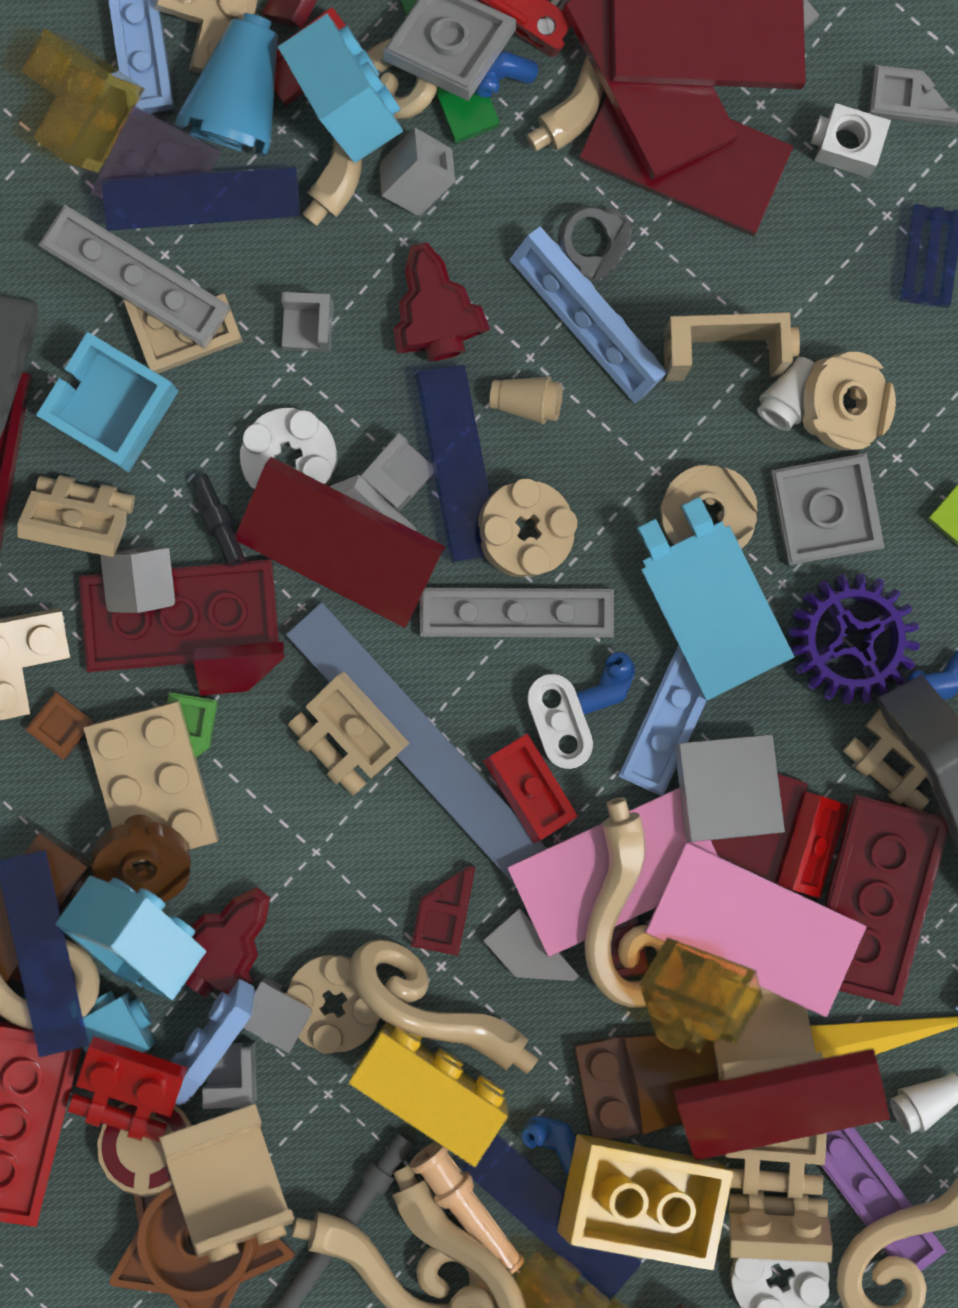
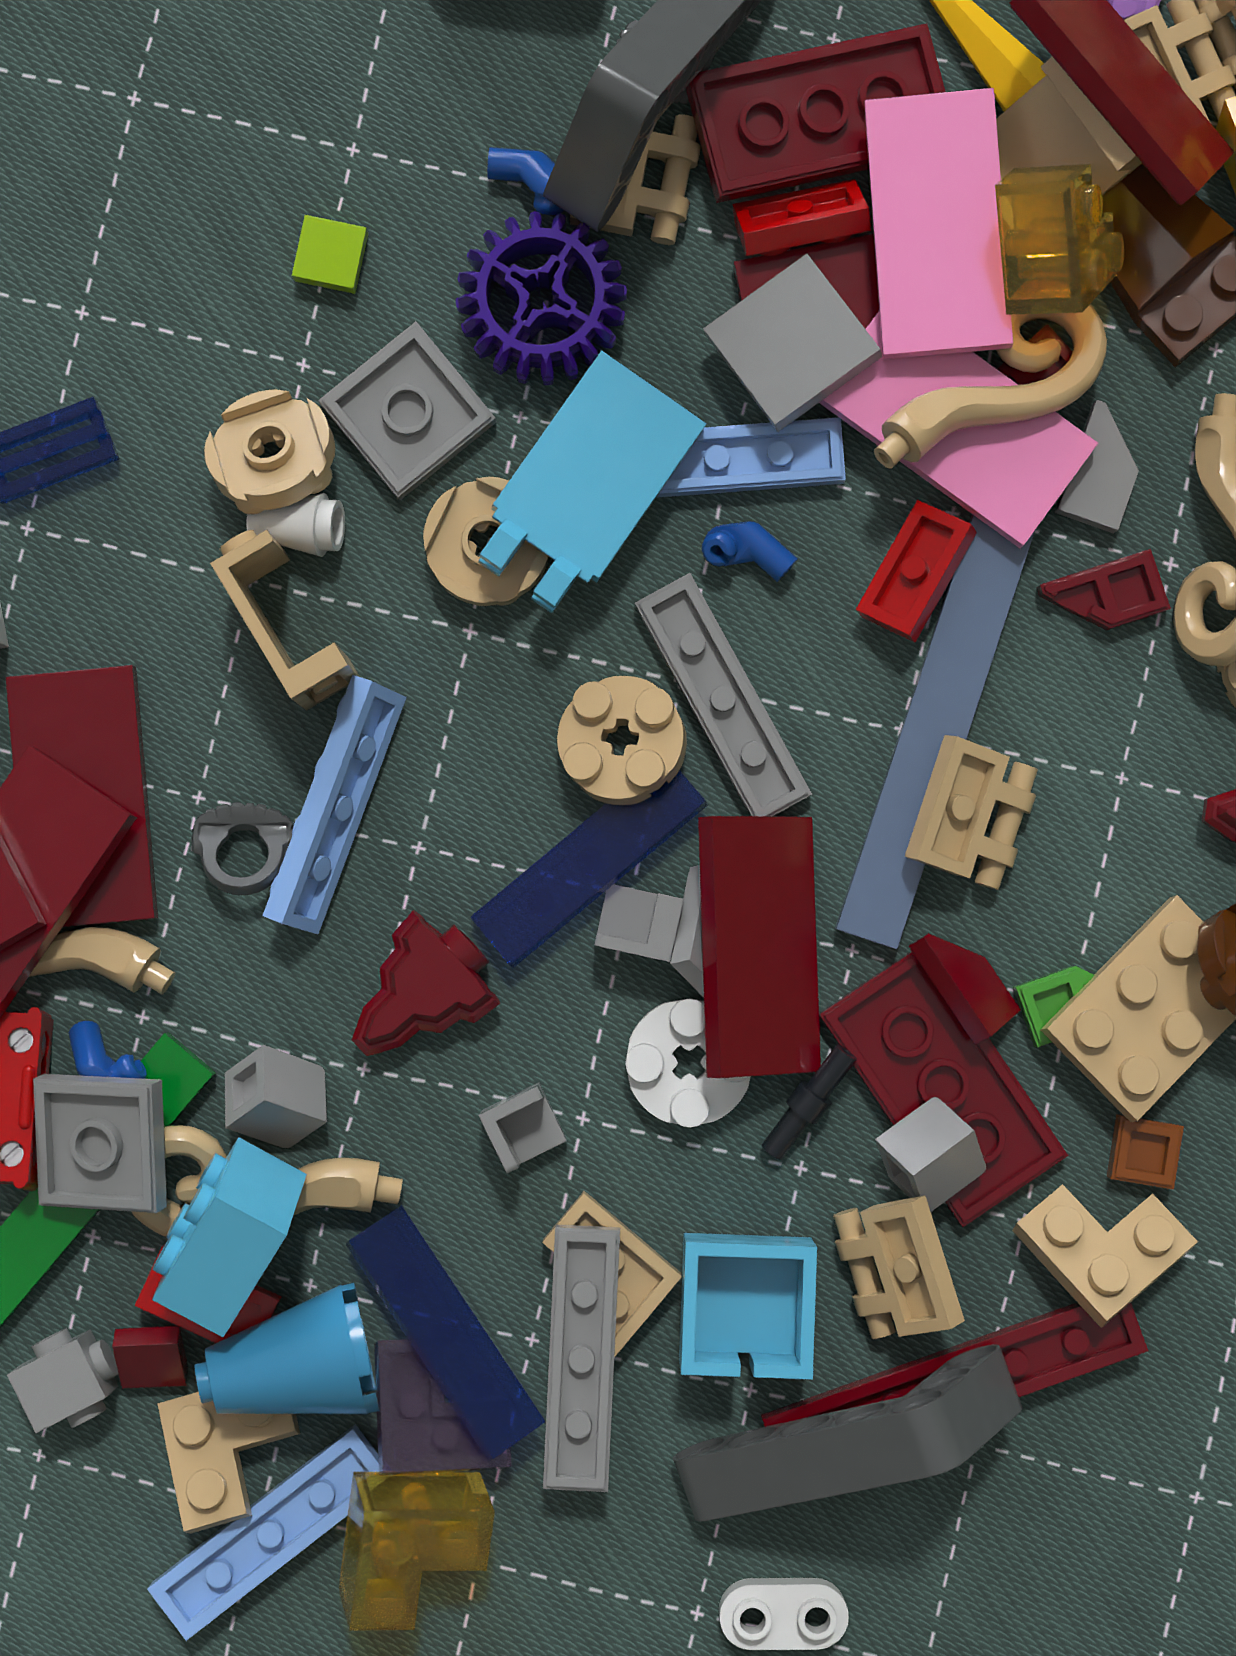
camera: 125 degrees left, 0 degrees up
(528, 398) = (469, 822): tan cone -> none
(560, 721) = (819, 580): white plate -> none

